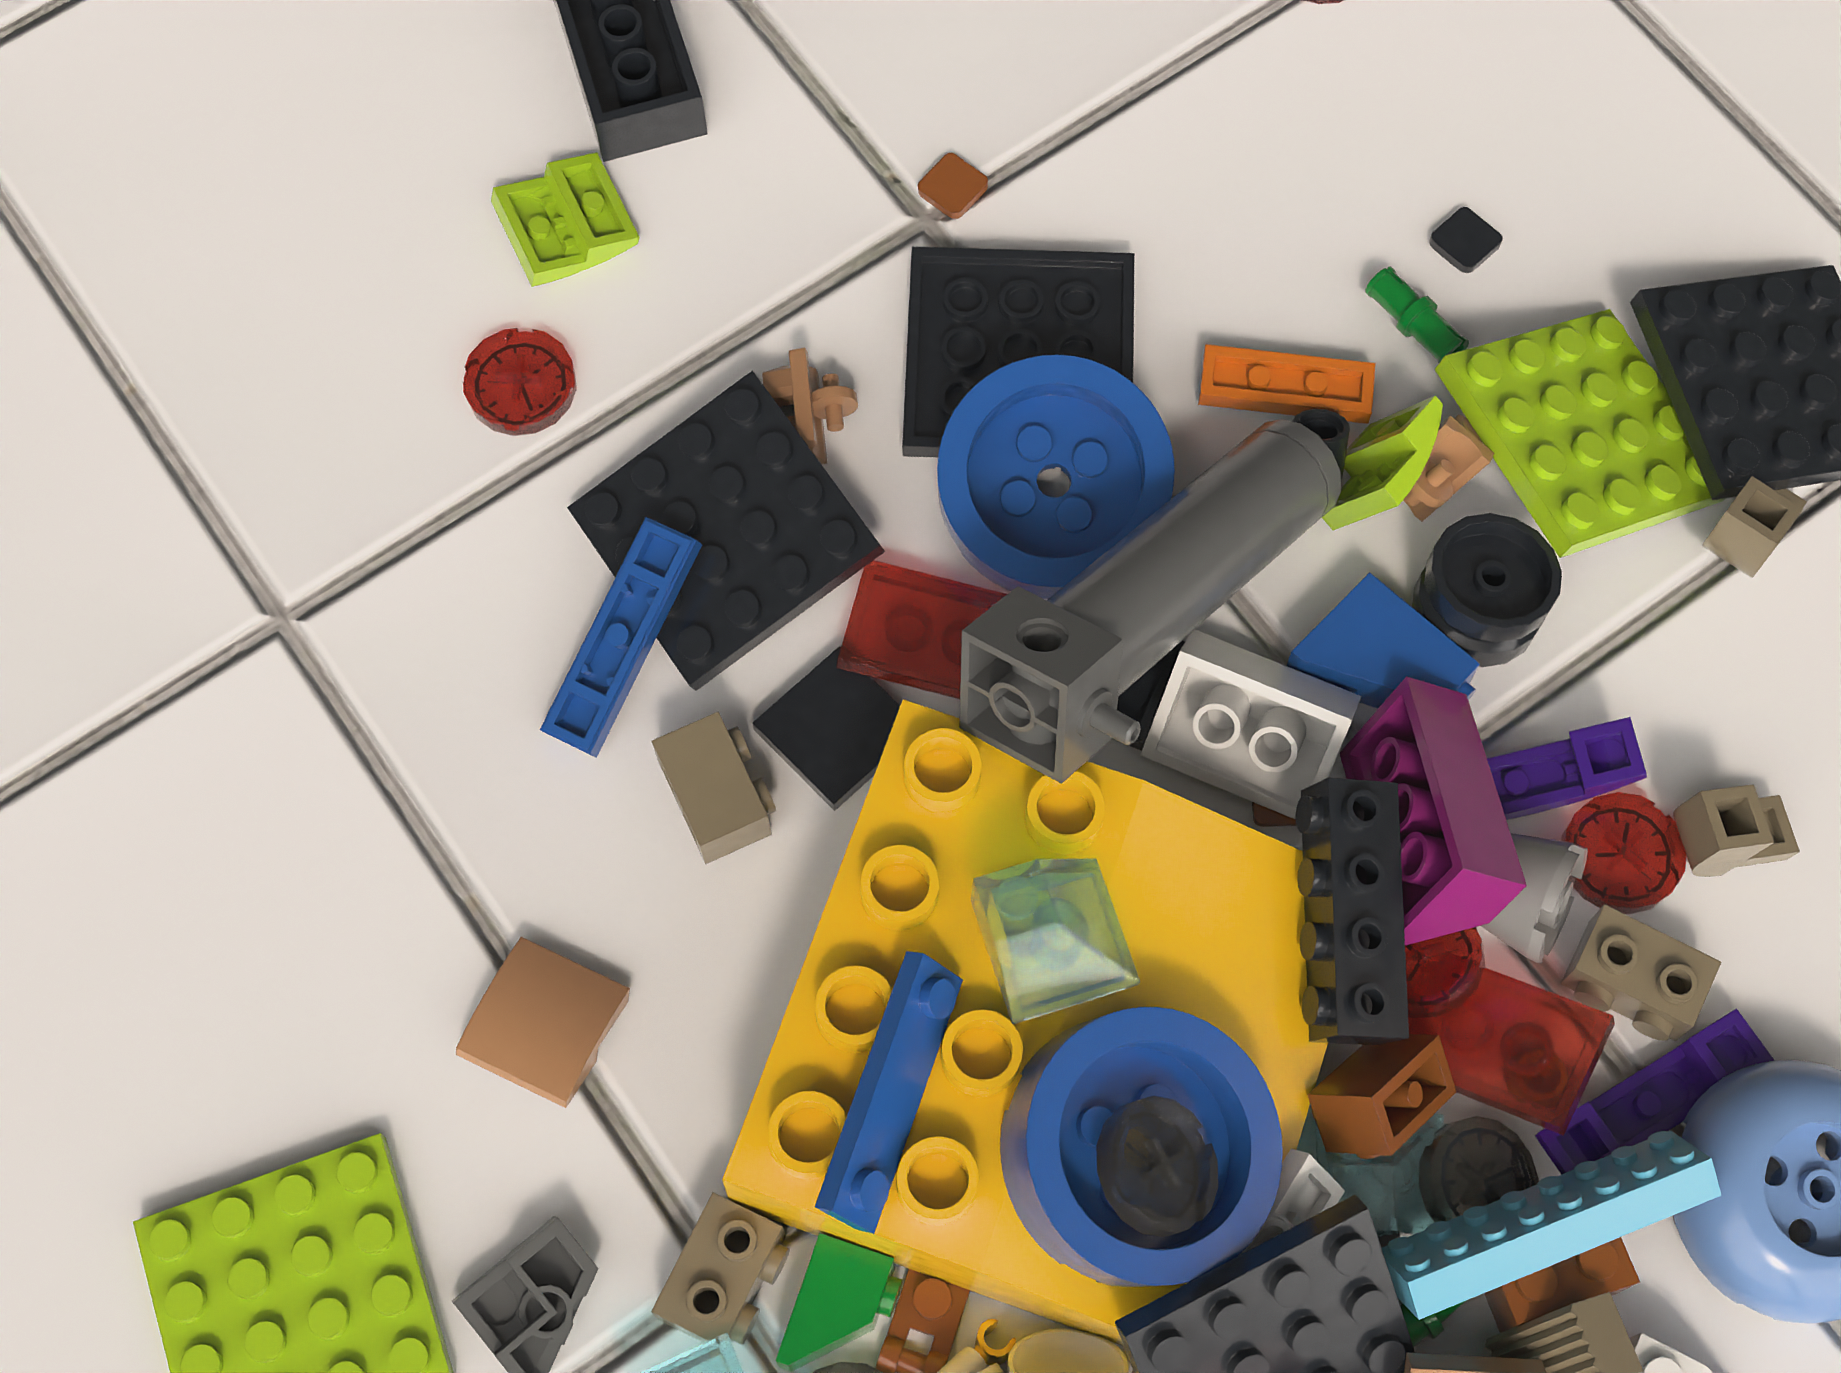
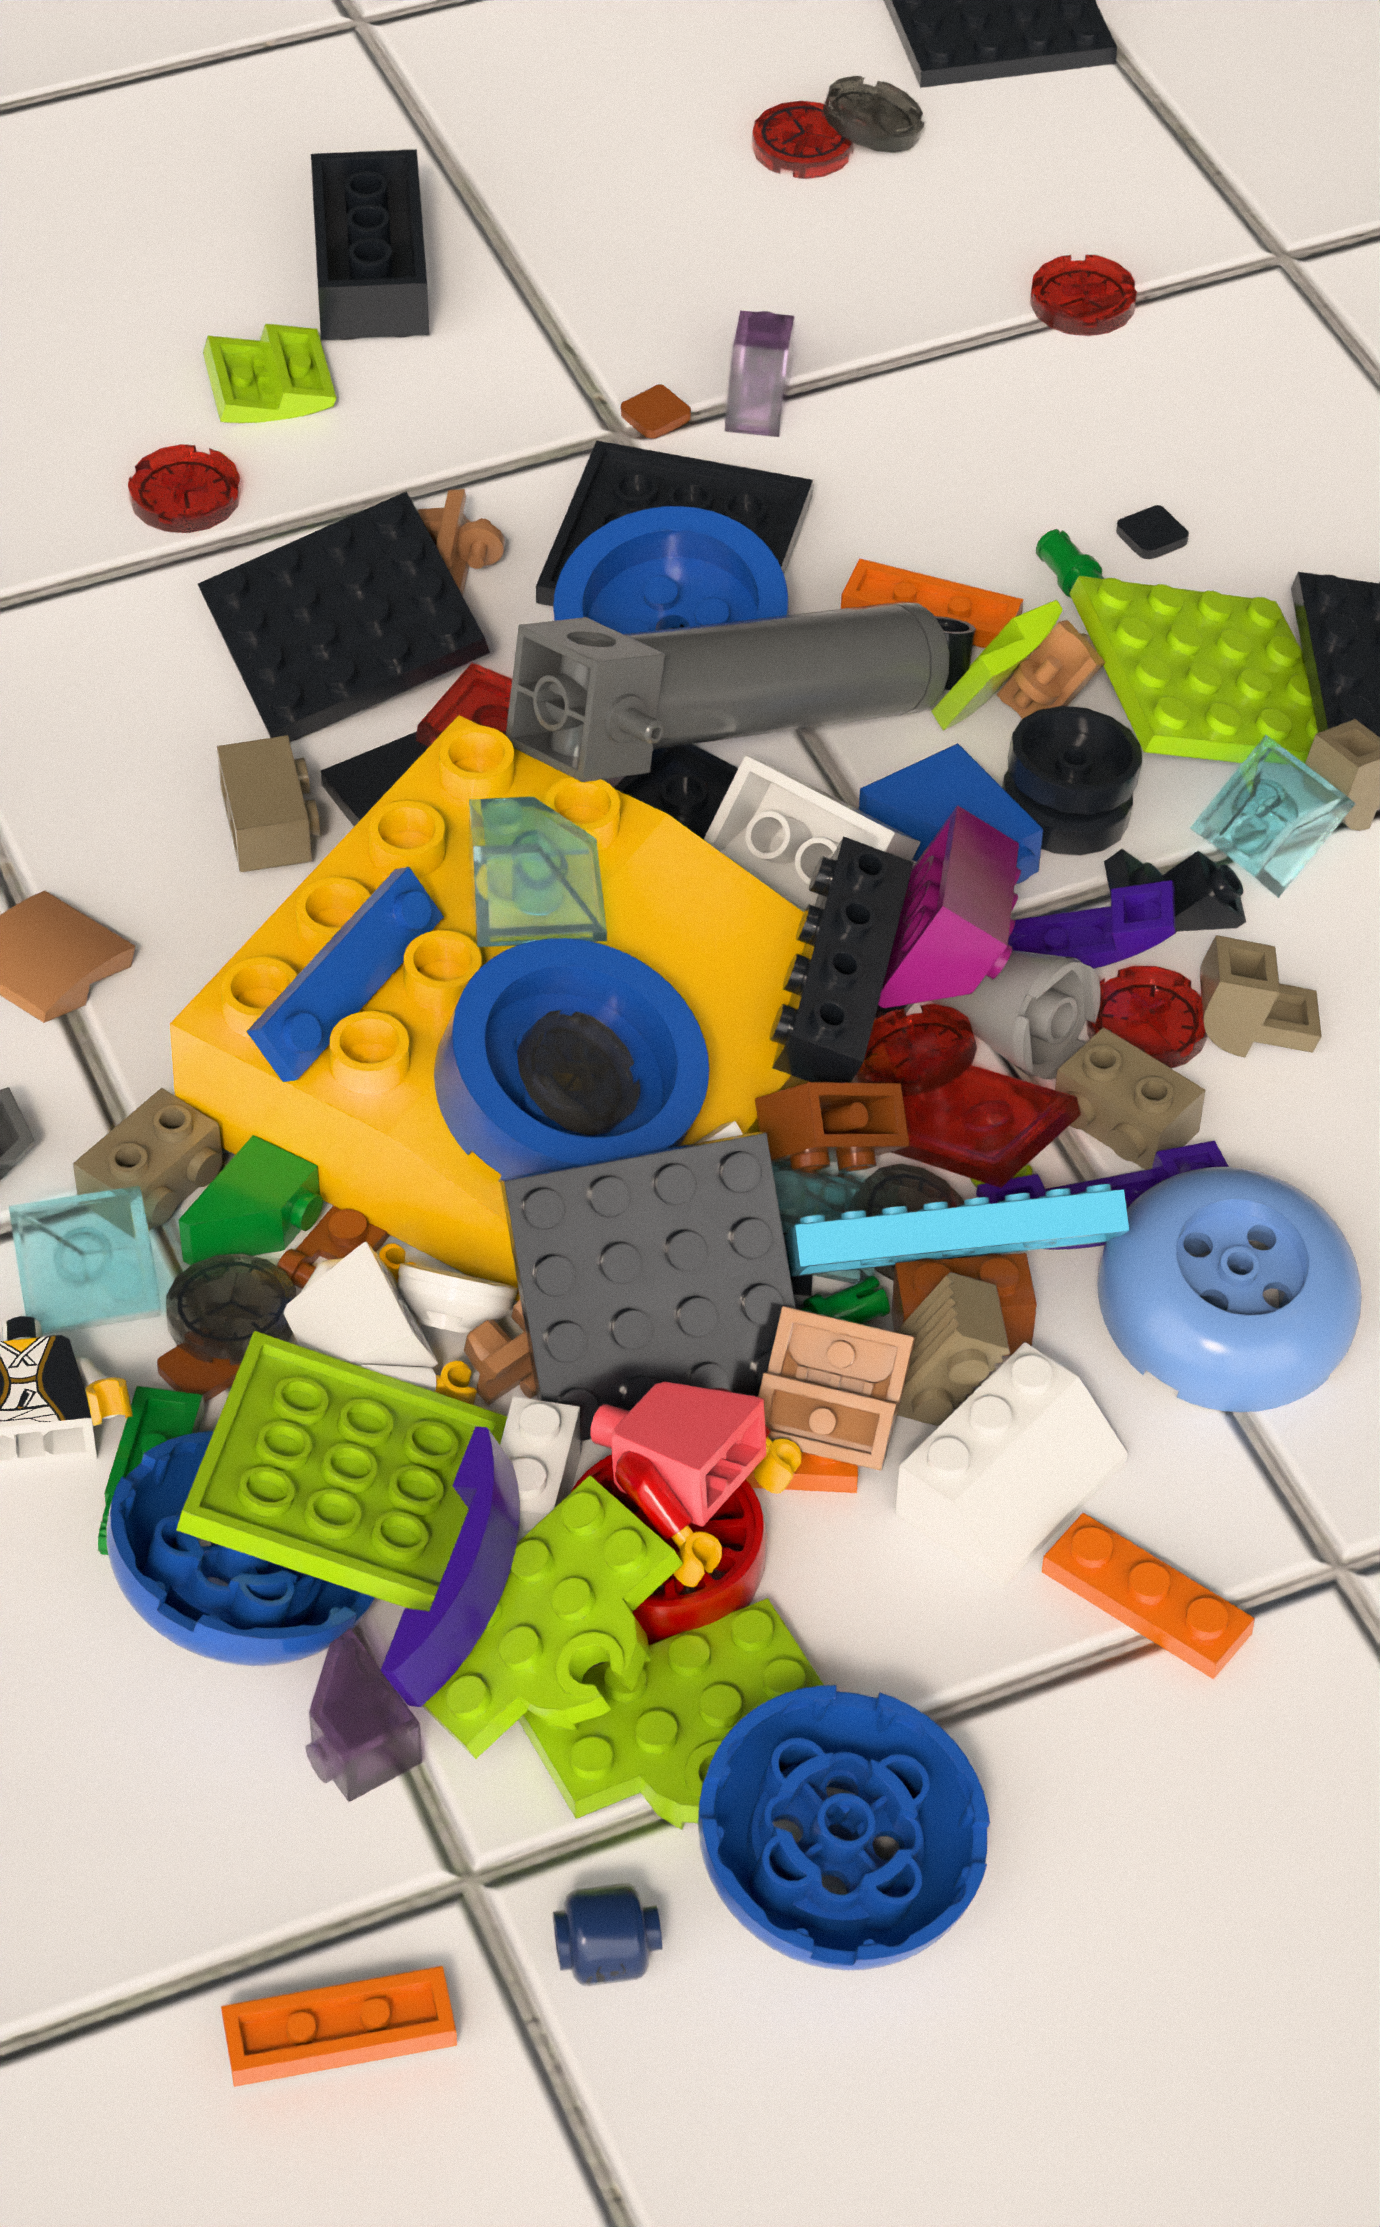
camera: 10 degrees right, 20 degrees down
(621, 637) = (214, 677): blue plate -> none
(1046, 127) = (760, 373): none -> slope
(1628, 688) = (1204, 892): none -> black slope
(1683, 592) = (1272, 816): none -> clear light blue slope

